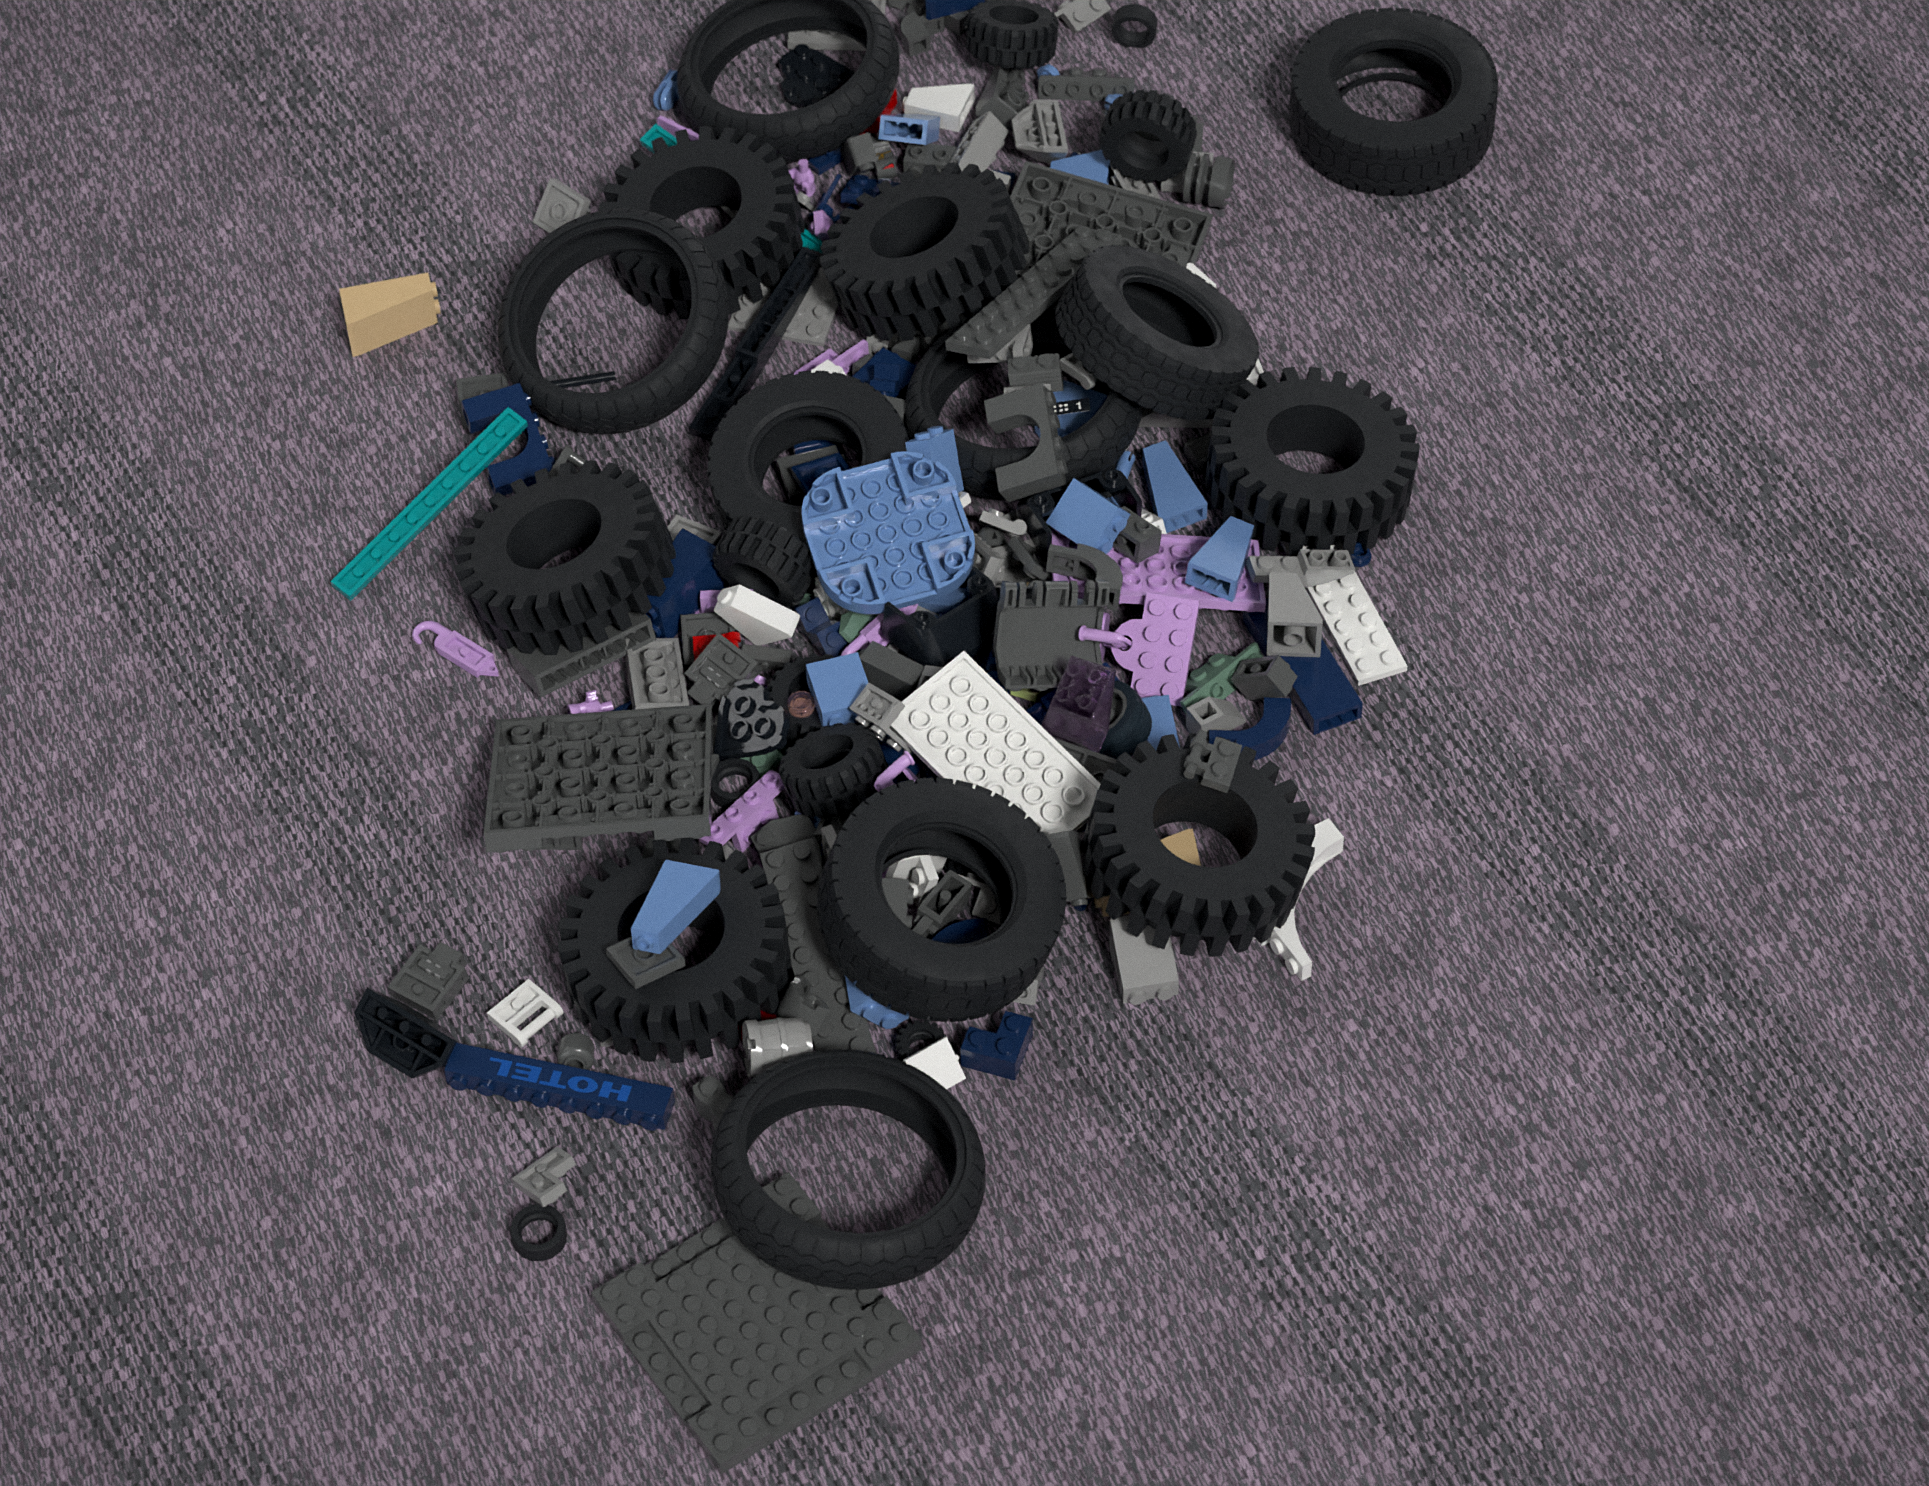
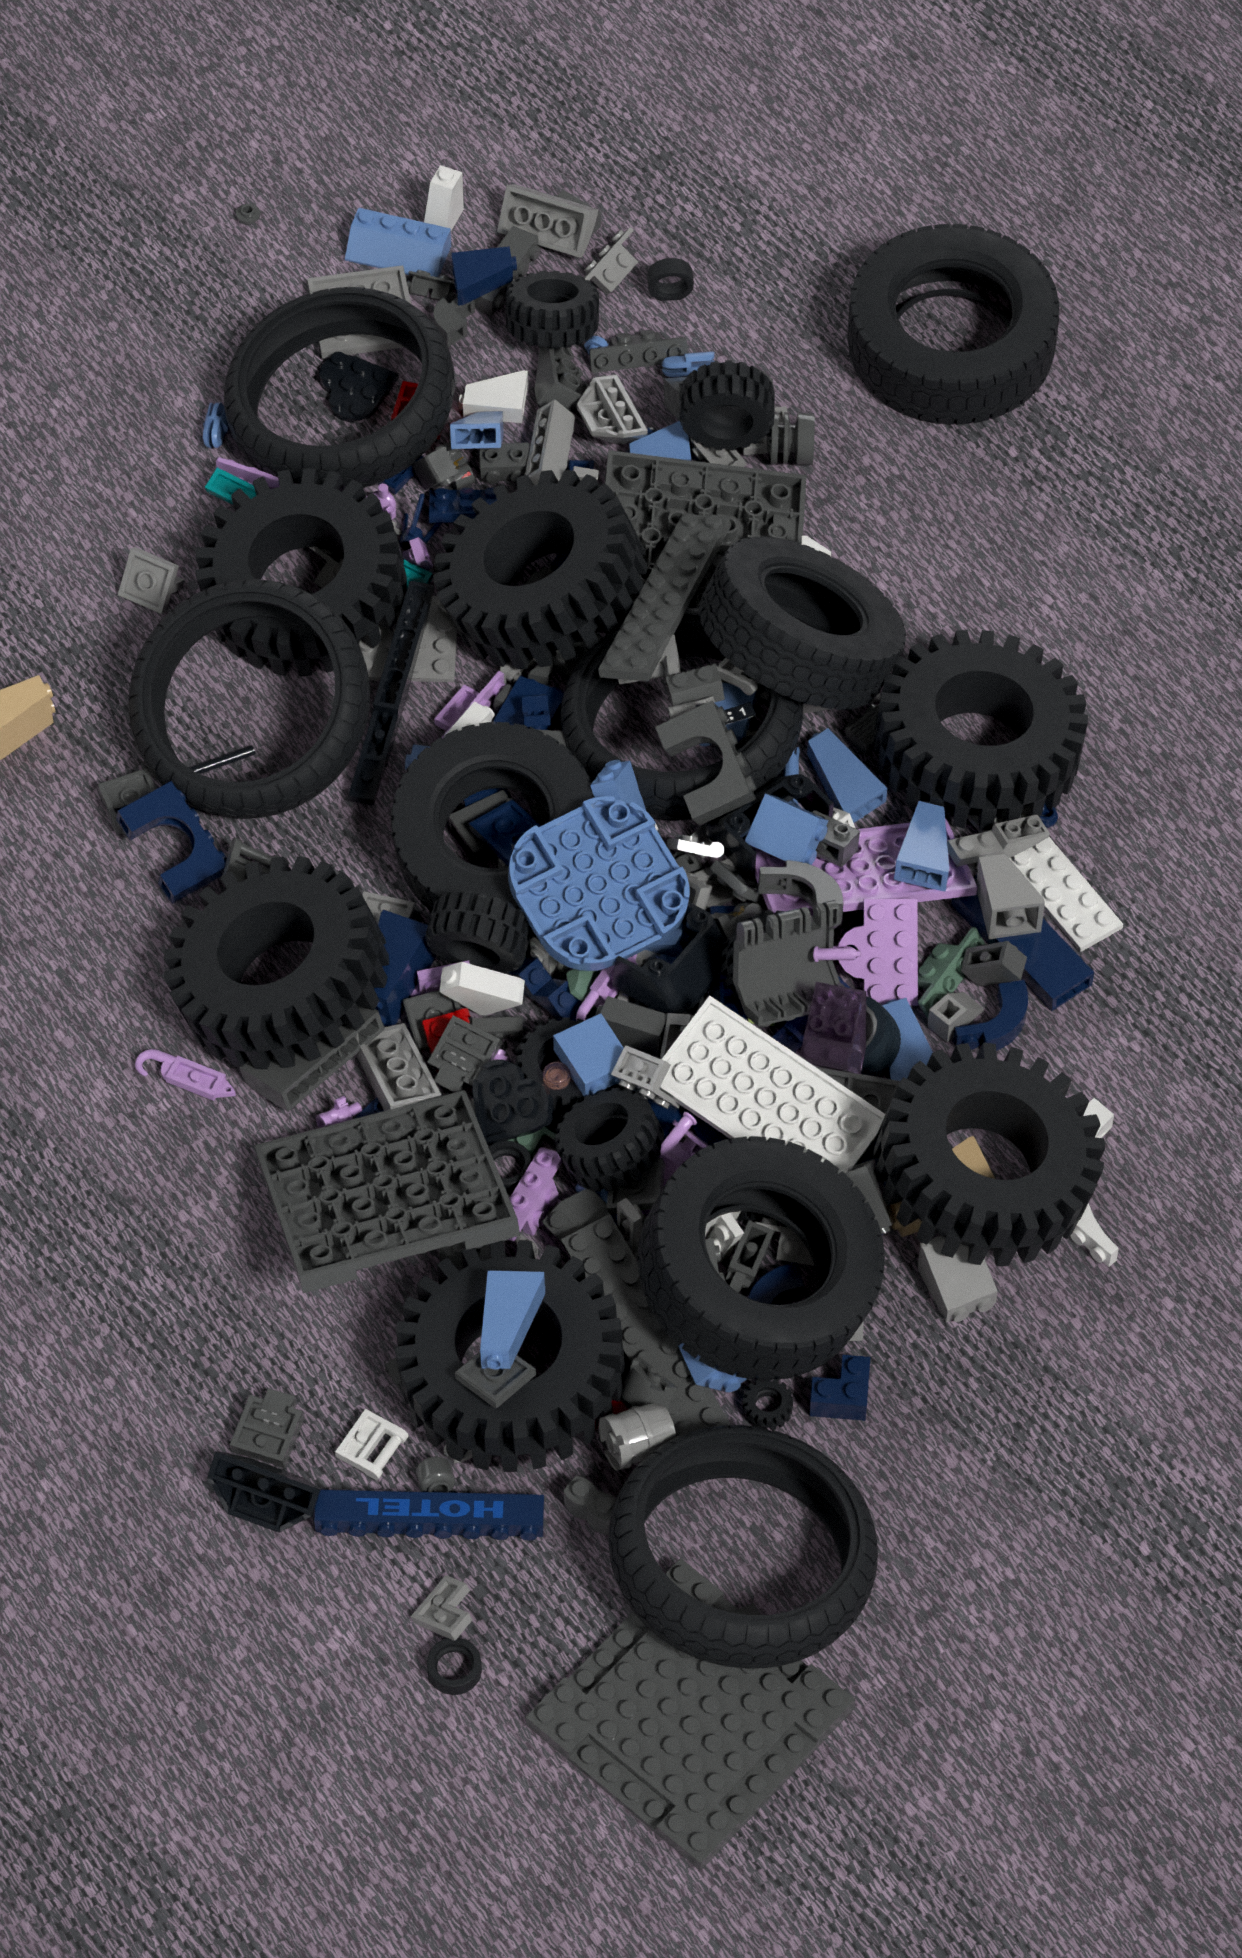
camera: 15 degrees left, 5 degrees up
(429, 504) = (113, 925): teal plate -> none
(938, 1062) = (790, 1418): white piece -> none
(1221, 764) = (995, 1070): dark grey plate -> none

